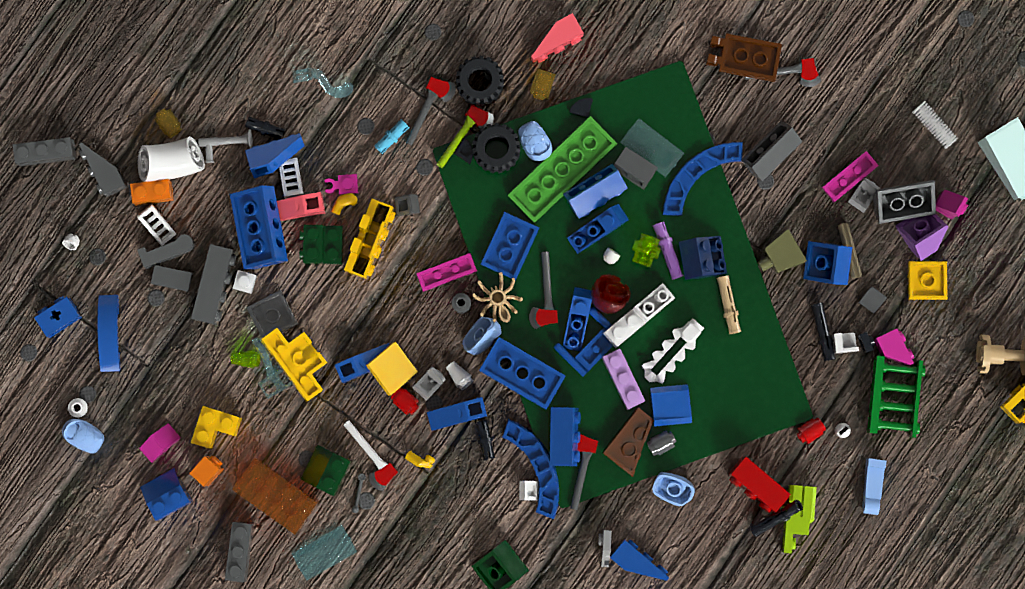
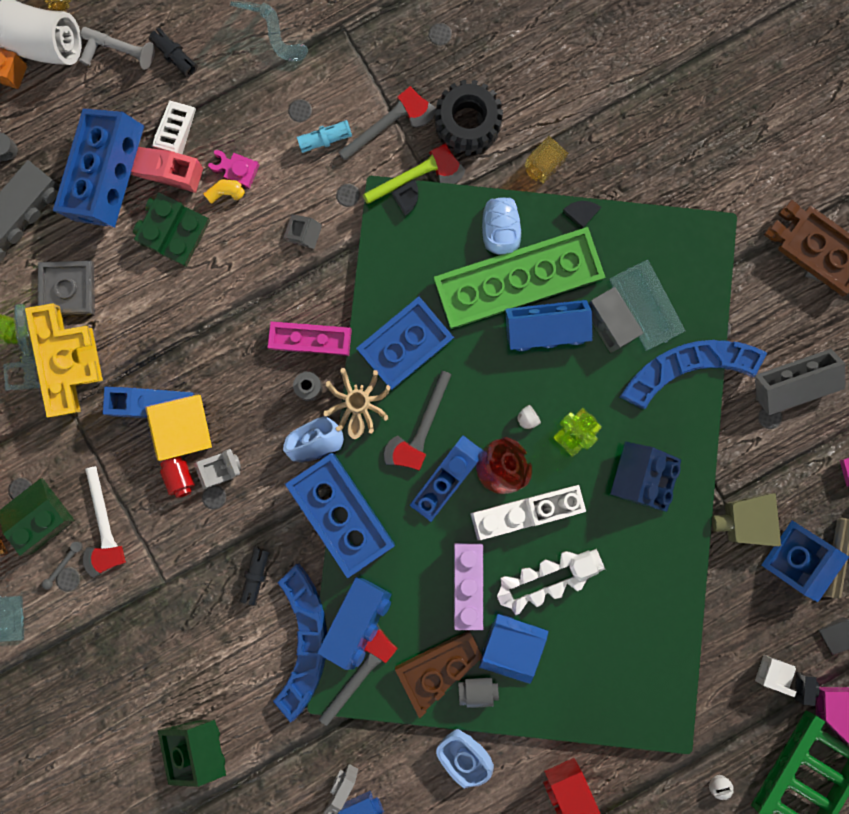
camera: 25 degrees right, 0 degrees up
(244, 282) = (53, 230): white plate -> none
(270, 156) = (163, 88): blue slope -> none
(369, 239) = (233, 249): yellow piece -> none
(418, 461) = (157, 564): yellow arm -> none
(457, 414) = (235, 526): blue slope -> none
(460, 377) = (262, 479): white cone -> none
(496, 131) = (454, 189): black tyre -> none
(528, 490) = (277, 669): white plate -> none
(561, 34) = (600, 109): coral slope -> none
(593, 351) = (446, 529): blue plate -> none
(598, 228) = (529, 374): blue slope -> none
(668, 251) = (605, 446): medium lavender pin -> none
(728, 304) = (651, 552): tan pin -> none
(810, 430) = (680, 769): red brick -> none
(823, 332) = (756, 648): black pin -> none

